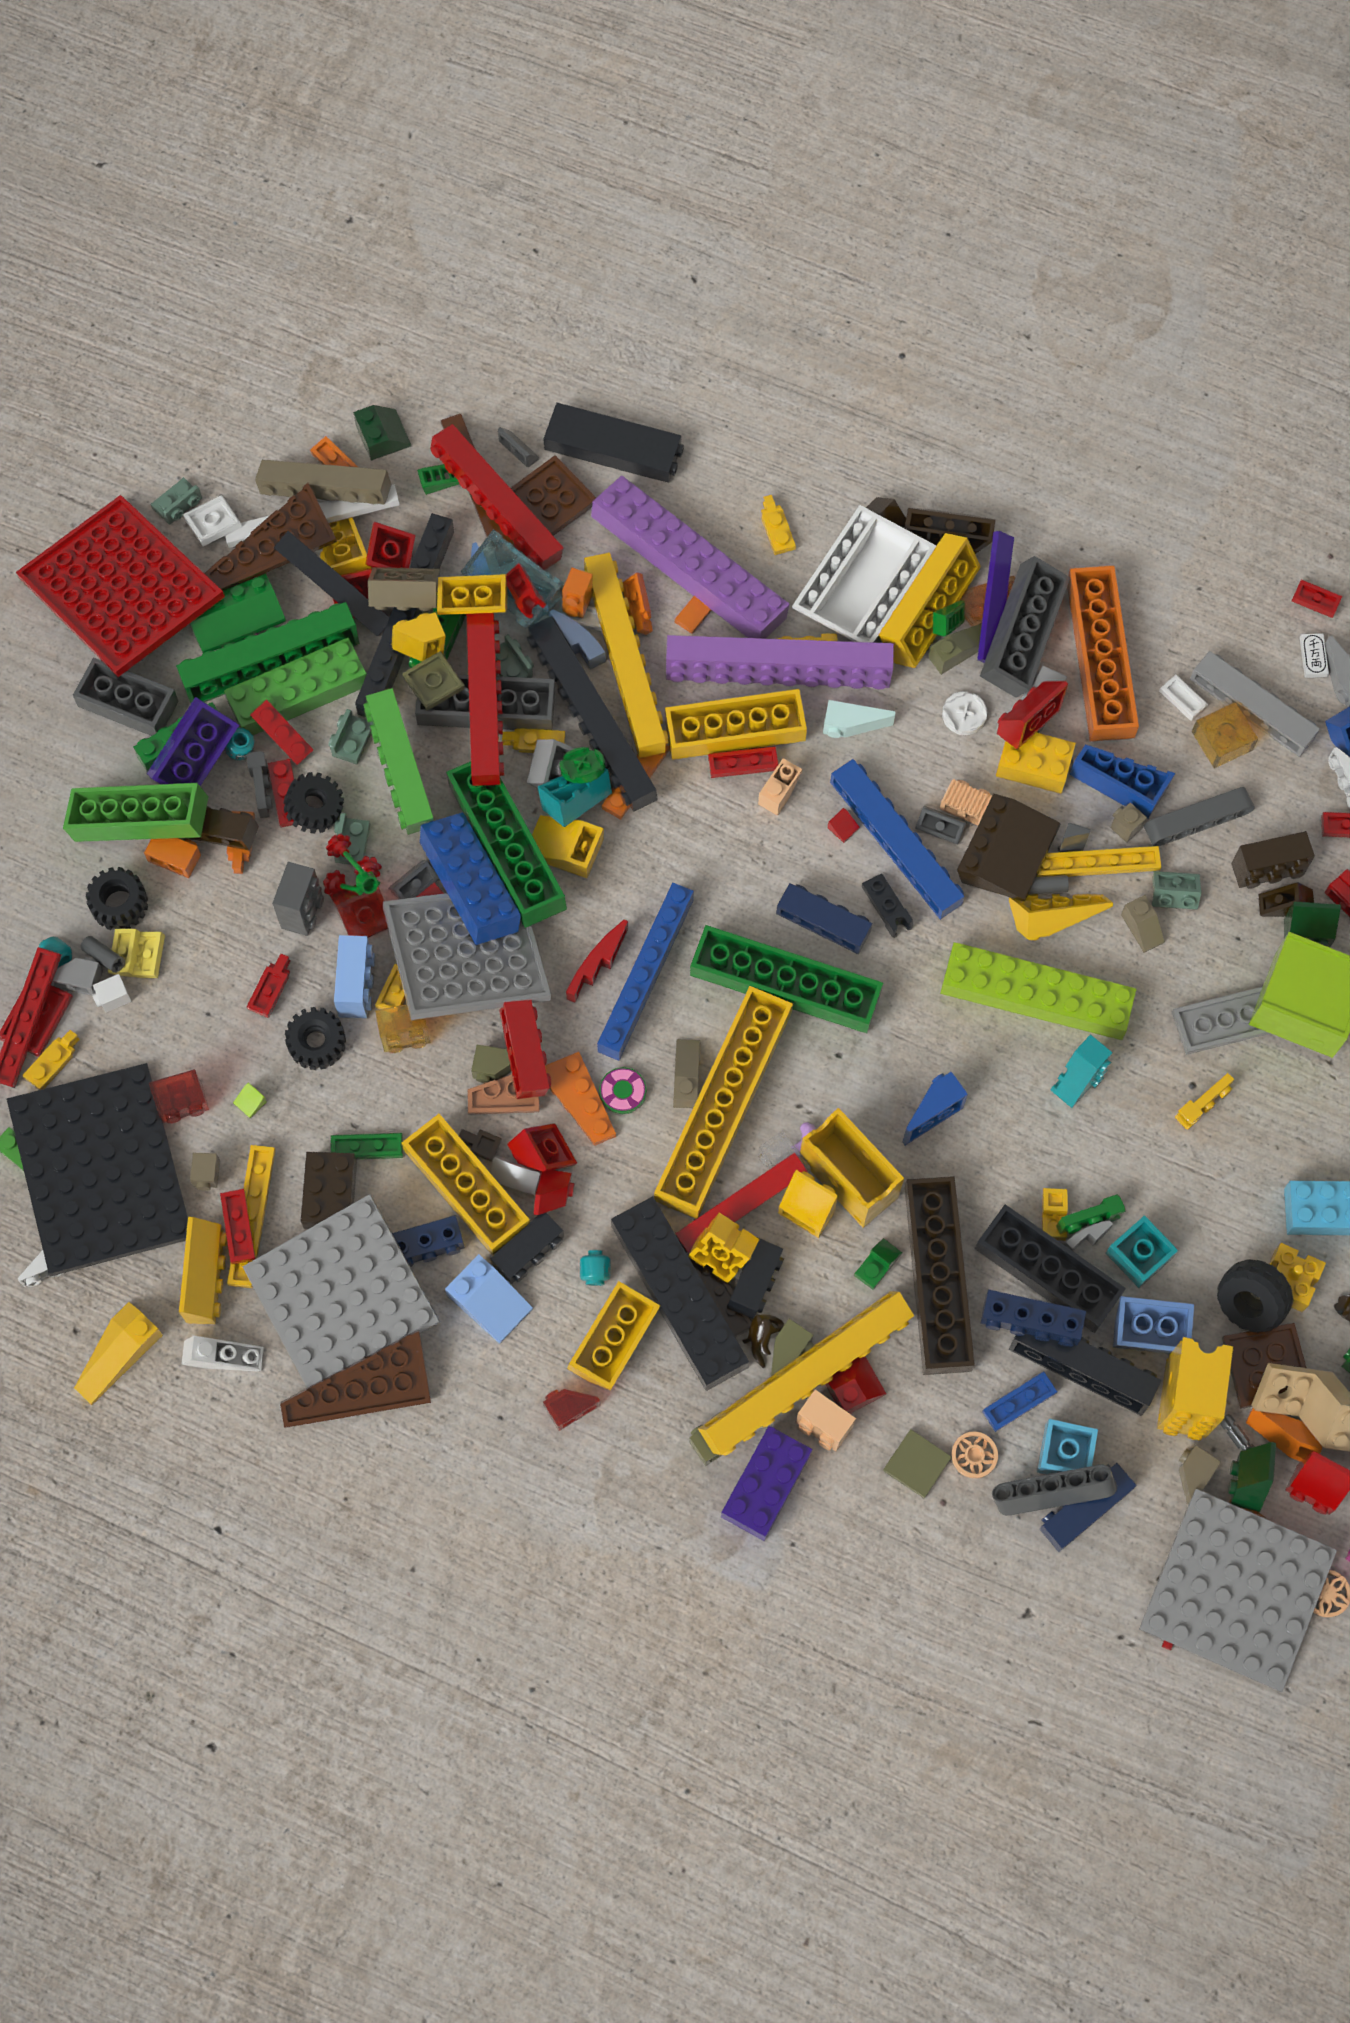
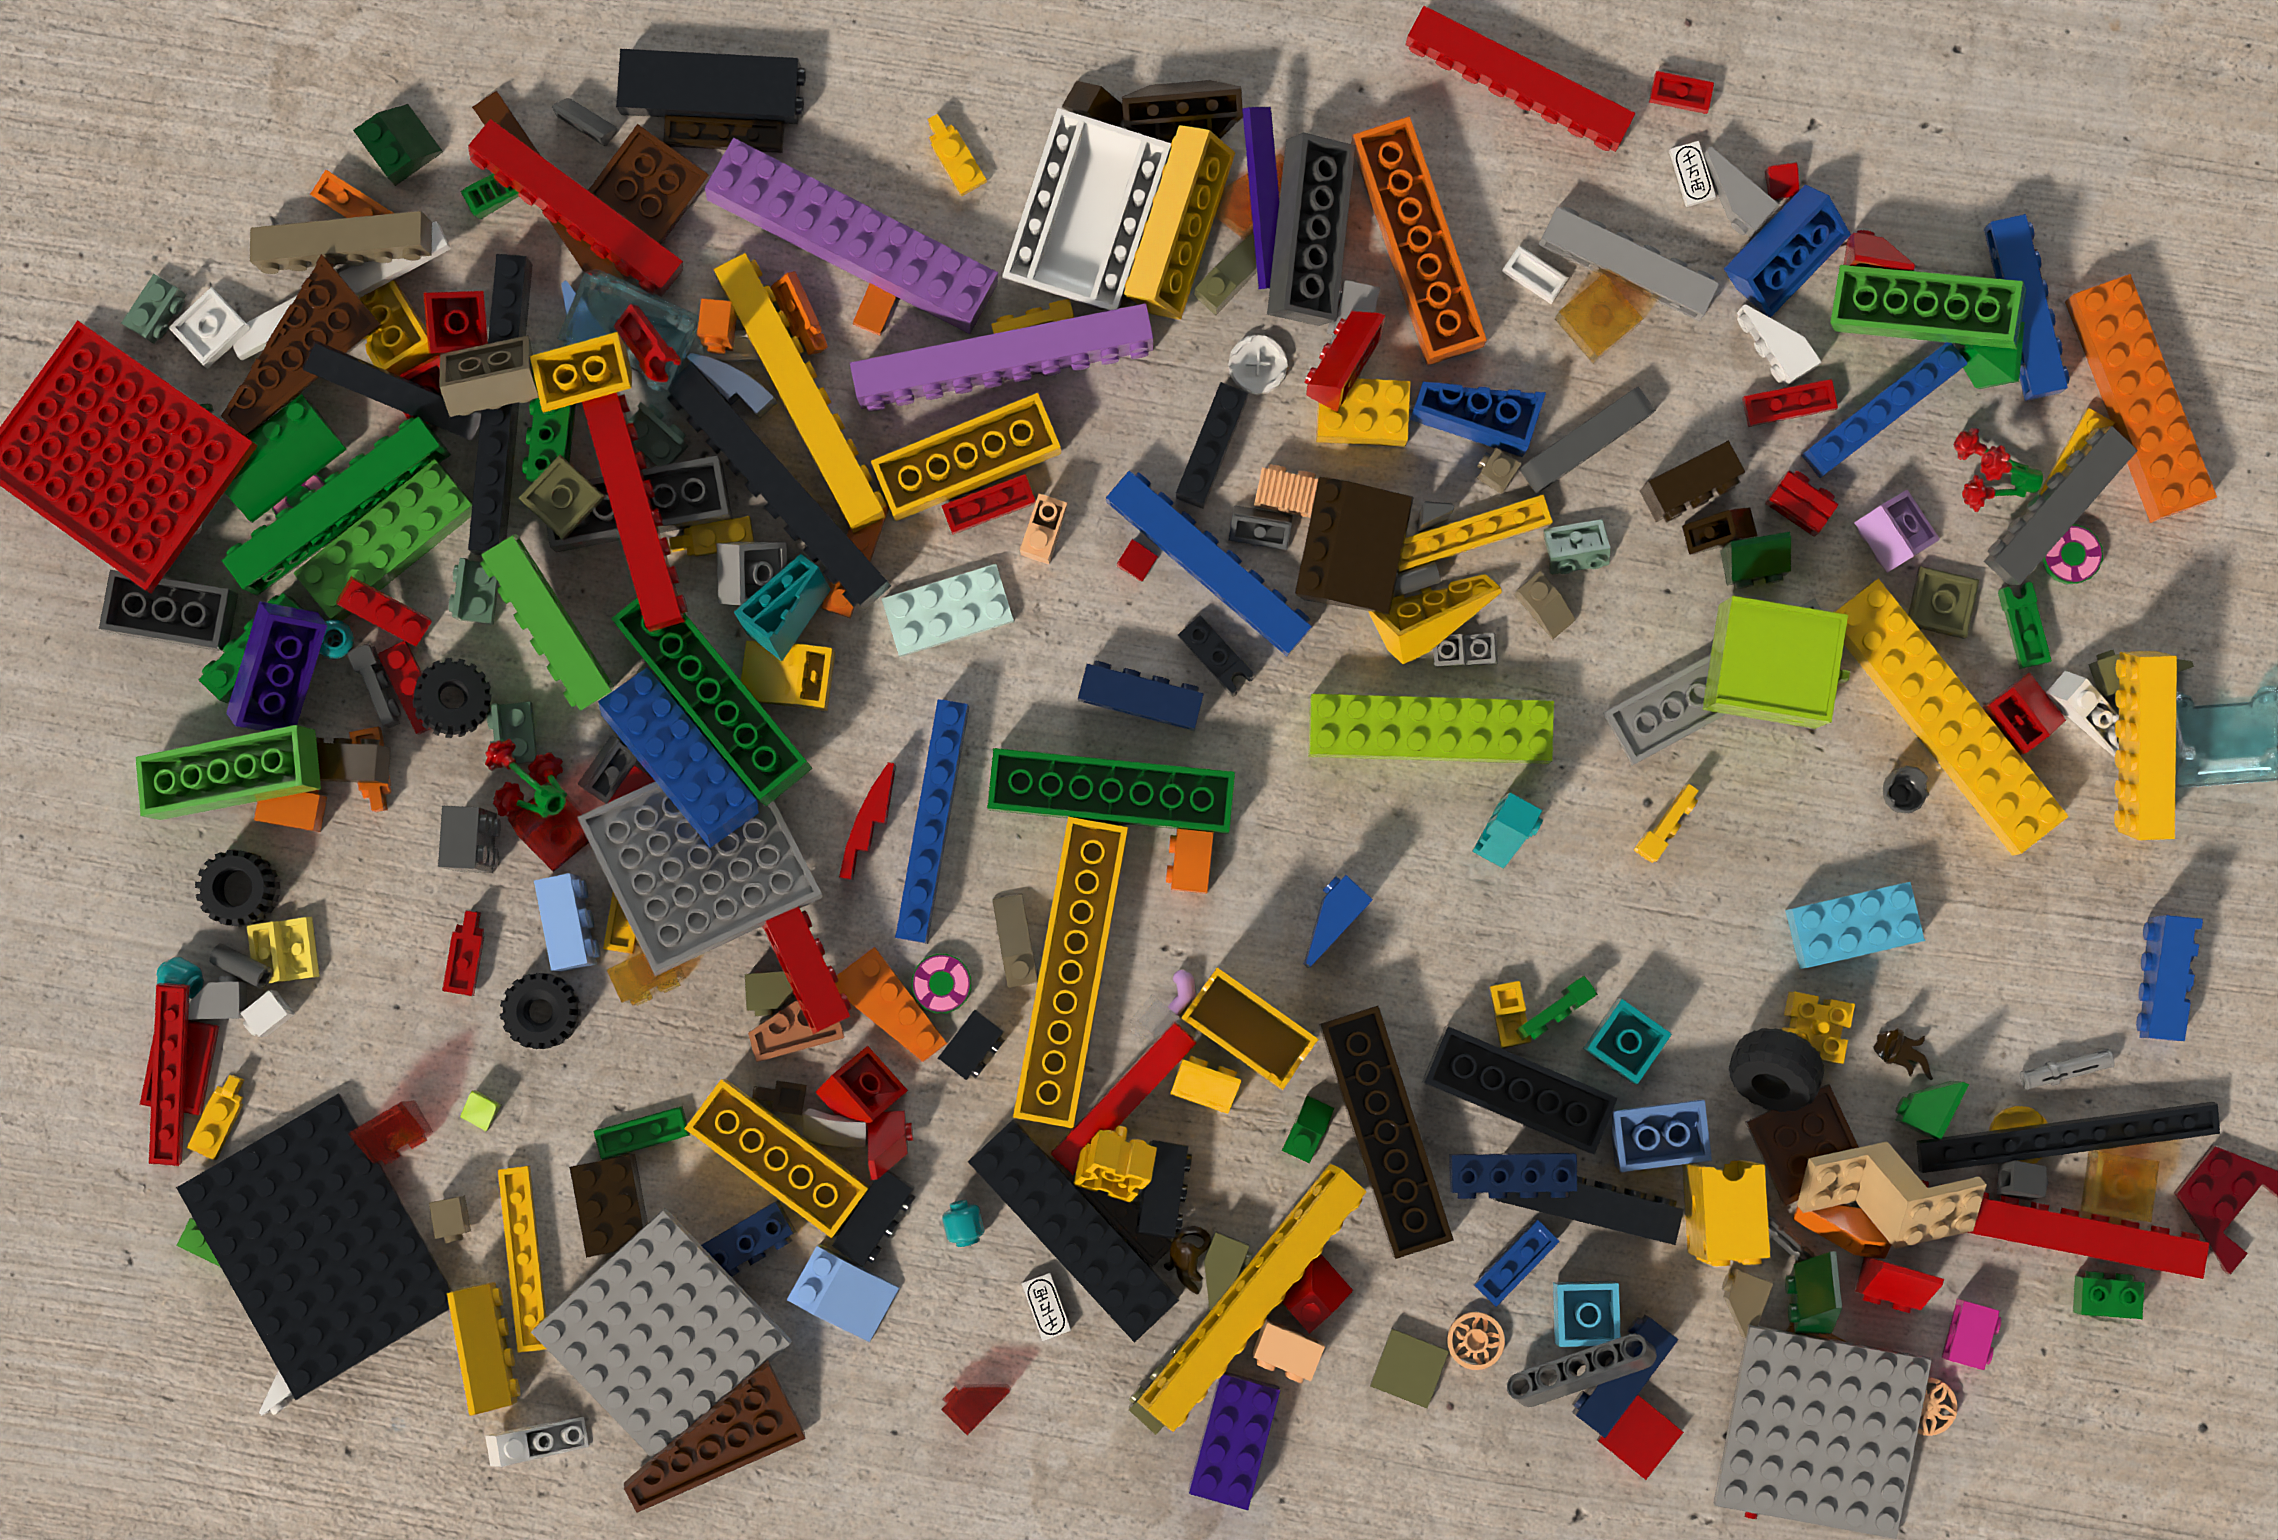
camera: 10 degrees left, 15 degrees up
(121, 1345) = (408, 1460): yellow wedge -> none
(237, 1226) = (510, 1281): red plate -> none
(419, 637) = (528, 447): yellow slope -> none
(582, 765) = (784, 570): green tile -> none
(606, 474) = (719, 132): none -> dark brown tile
(613, 1336) = (1007, 1307): yellow slope -> none
(635, 1139) = (971, 1045): none -> black brick
(645, 1354) = (1046, 1306): none -> white tile
(694, 829) = (947, 610): none -> light aqua plate
(834, 1044) = (1191, 861): none -> orange brick
(851, 719) = (1112, 412): light aqua slope -> none
(918, 757) = (1211, 445): none -> black brick
(948, 618) = (1209, 241): green slope -> none
(1076, 944) = (1466, 650): none -> light grey slope
(1090, 1560) = (1641, 1437): none -> red tile
(1091, 1234) = (1563, 1029): light grey slope -> none
(1200, 564) = (1519, 79): none -> red brick

